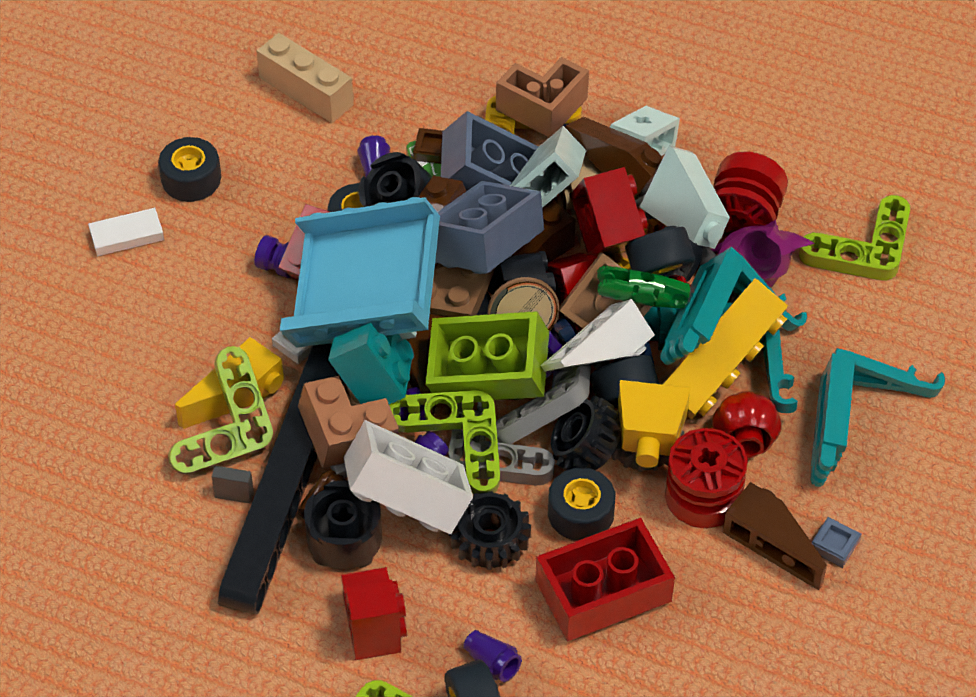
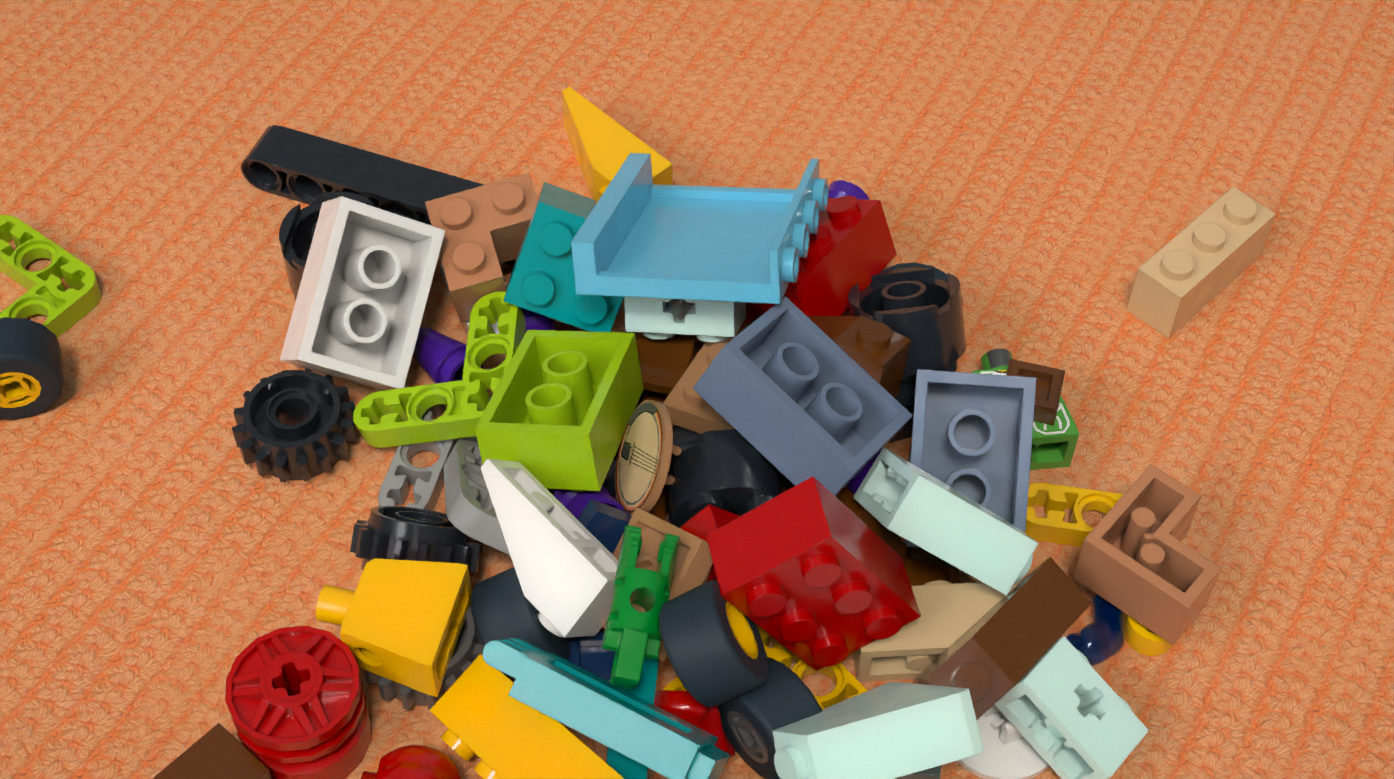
camera: 95 degrees right, 0 degrees up
(126, 231) = (904, 71): white tile -> none
(189, 169) = (1010, 129): black wheel -> none
(232, 484) = (444, 148): dark grey tile -> none
(235, 431) = (541, 155): lime beam -> none
(371, 149) = (1033, 341): dark purple cone -> none
(374, 613) = (187, 278): red brick -> none
(498, 655) = (90, 412): dark purple cone -> none
(581, 503) = (308, 542): black wheel -> none
(604, 579) = (154, 547): red brick -> none

